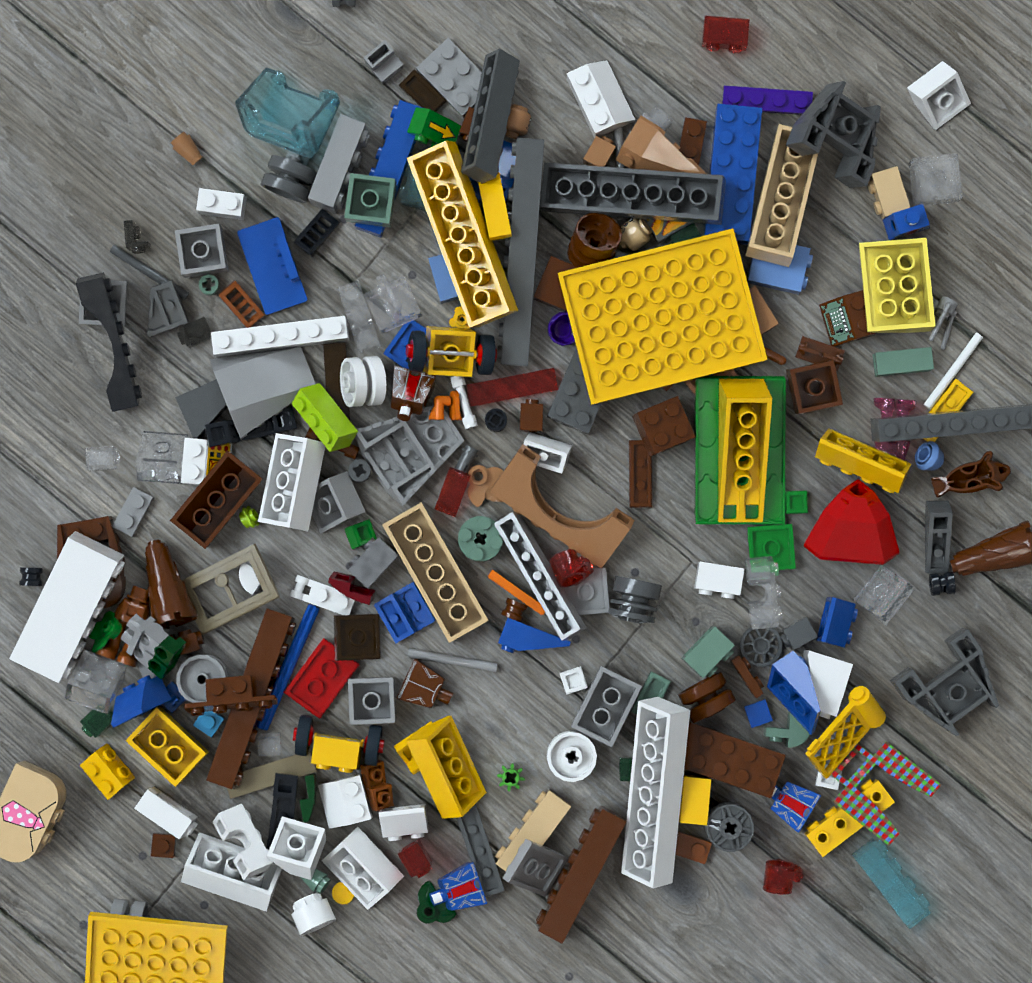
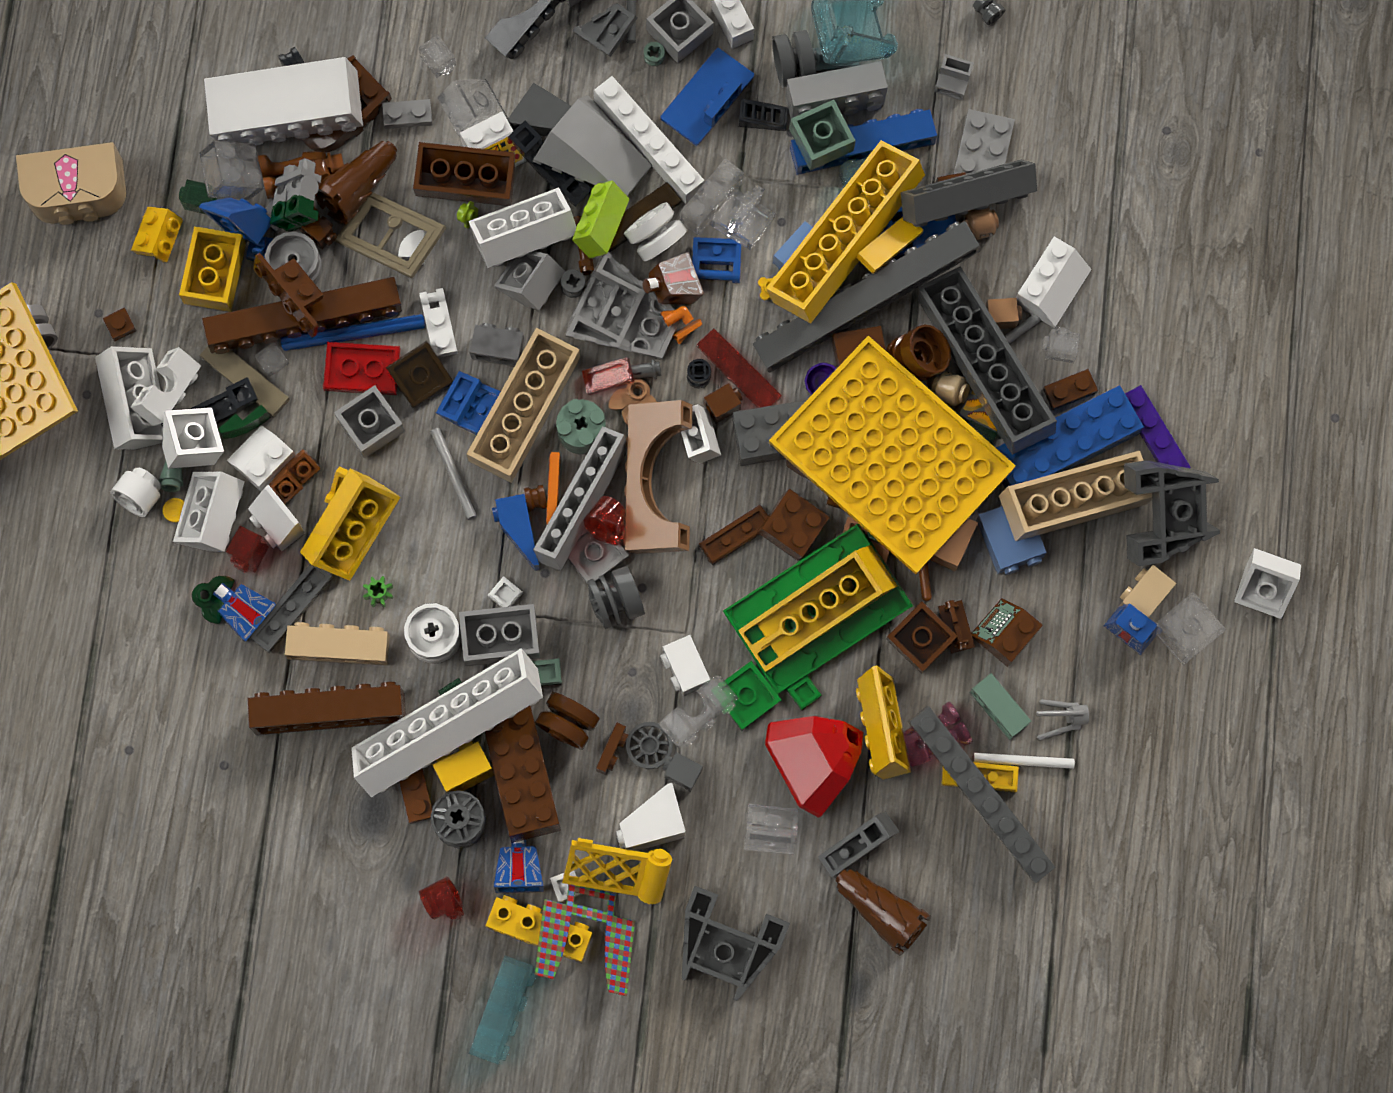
camera: 50 degrees right, 10 degrees down
(105, 629) = (286, 152): green plate -> none
(167, 813) = (150, 304): white window -> none
(194, 332) = (601, 66): clear smoke bracket -> none
(209, 723) = (257, 294): dark azure plate -> none
(227, 290) = (661, 72): dark orange slope -> none
(337, 750) = (298, 412): brick -> none
(345, 585) = (460, 337): dark red slope -> none
(360, 533) = (516, 318): green slope -> none
(422, 92) = (950, 129): dark brown tile -> none
(423, 686) = (412, 460): reddish brown torso -> none
(432, 127) = (925, 145): green brick -> none
(450, 352) = (733, 290): brick -> none
(469, 420) = (710, 321): white bar -> none
(535, 867) = (305, 660): light grey plate -> none
(650, 150) = (1037, 350): medium nougat wedge -> none
(708, 652) = (610, 695): sand green brick -> none
(725, 34) = (1188, 356): clear red brick -> none
(758, 713) = (583, 783): blue tile -> none
(794, 733) = (593, 827): sand green brick -> none
(795, 690) = (627, 791): blue slope -> none
(836, 622) = (716, 798): blue slope -> none
(897, 286) = (1065, 652): light yellow slope -> none
(929, 456) = (928, 788): medium blue cone -> none
(942, 583) = (817, 876): black wheel -> none
(973, 477) = (937, 840): reddish brown animal -> none

